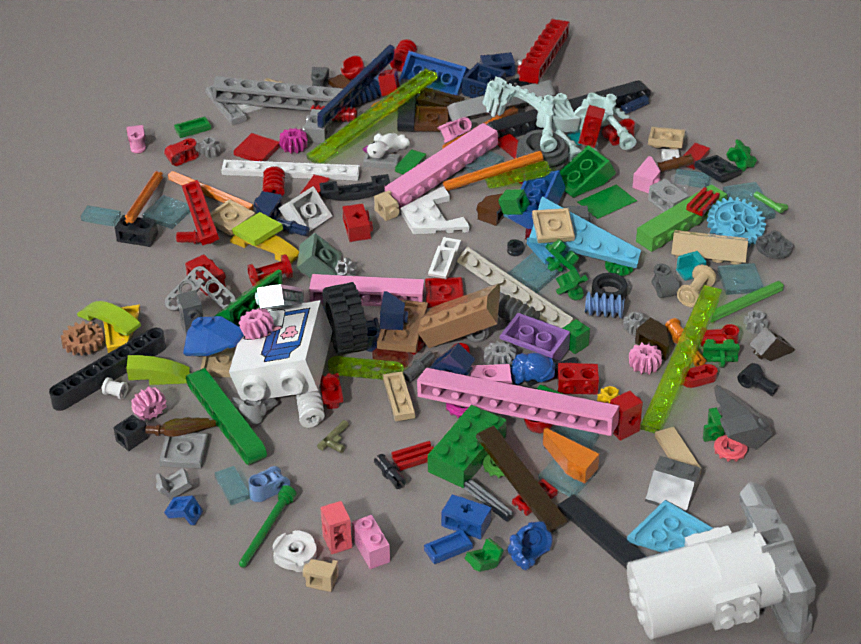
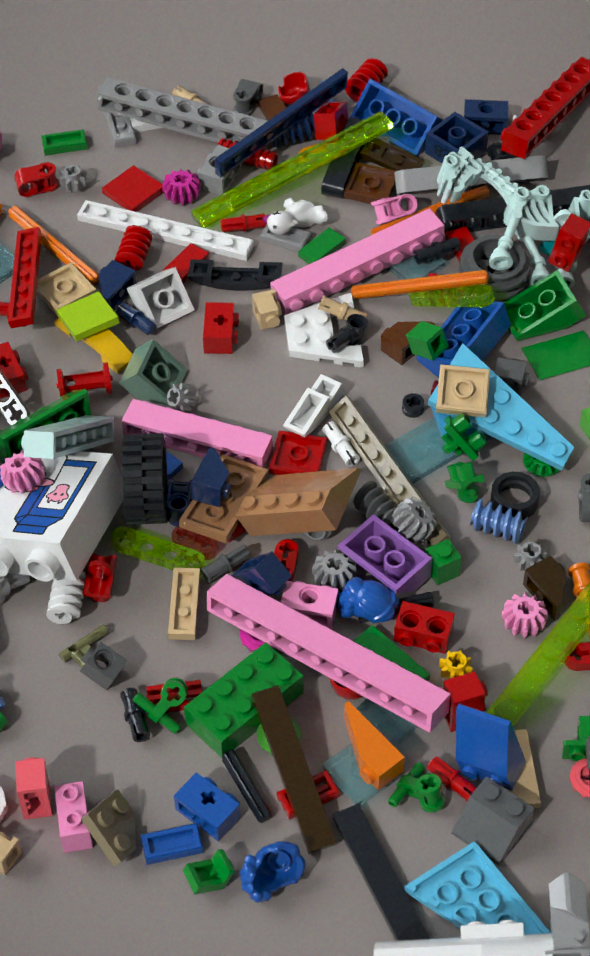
camera: 15 degrees right, 10 degrees up
(348, 156) = (242, 223): none -> red axle
(355, 443) = (112, 660): none -> dark grey brick
(403, 541) = (113, 827): none -> dark tan plate
(407, 464) = (157, 711): none -> green piece
(442, 197) = (337, 309): none -> tan pin
(454, 210) = (352, 333): none -> black pin
(472, 278) = (341, 444): none -> white pin
(496, 150) = (436, 250): none -> black pin
(548, 310) = (414, 519): none -> light grey gear
(614, 476) = (425, 788): none -> green piece
(633, 466) = (451, 777): none -> red axle
(655, 433) = (487, 747): none -> blue slope

